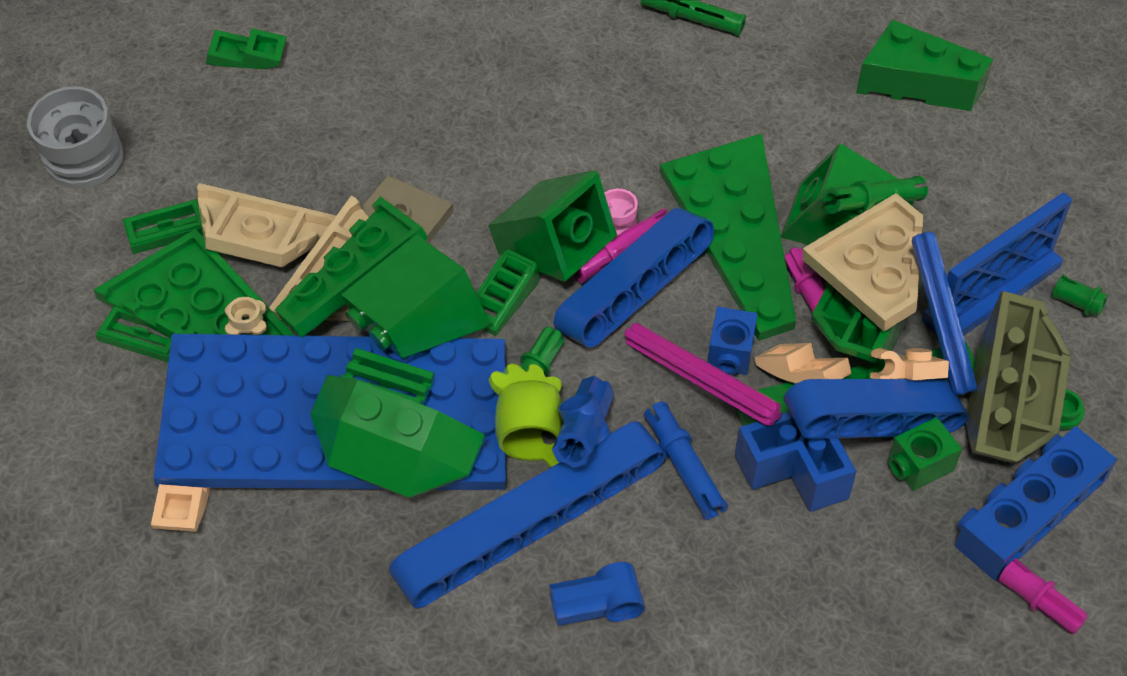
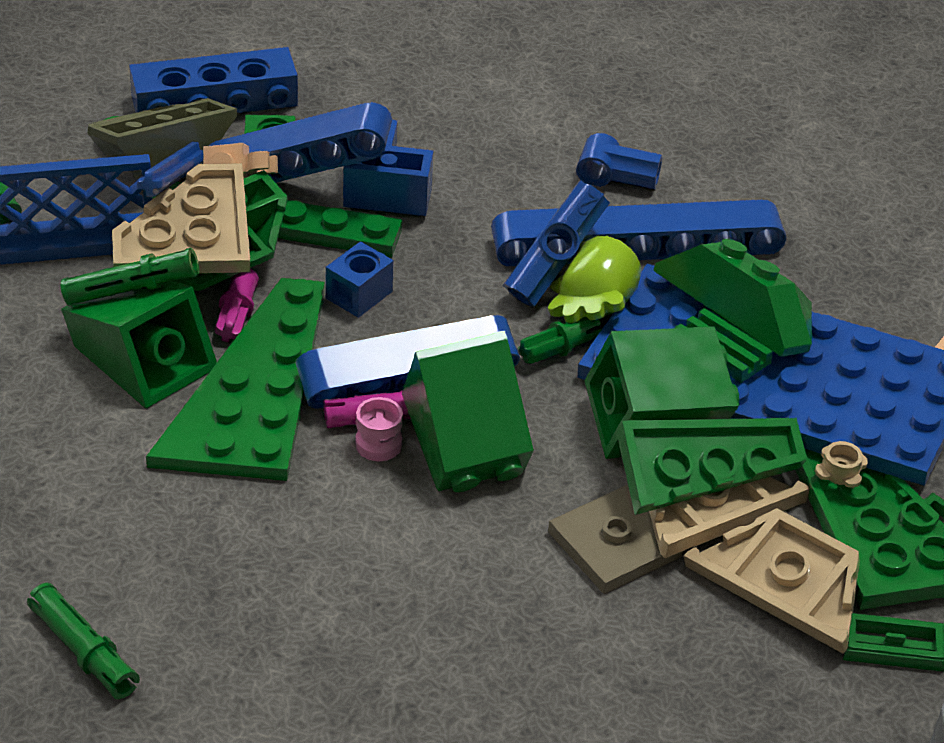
camera: 155 degrees left, 10 degrees down
(516, 272) = (557, 426): green slope -> none
(677, 446) = (475, 230): blue pin -> none
(703, 374) = (418, 239): dark pink axle -> none
(797, 363) = (313, 230): light nougat slope -> none
(1043, 596) = (264, 34): dark pink axle -> none

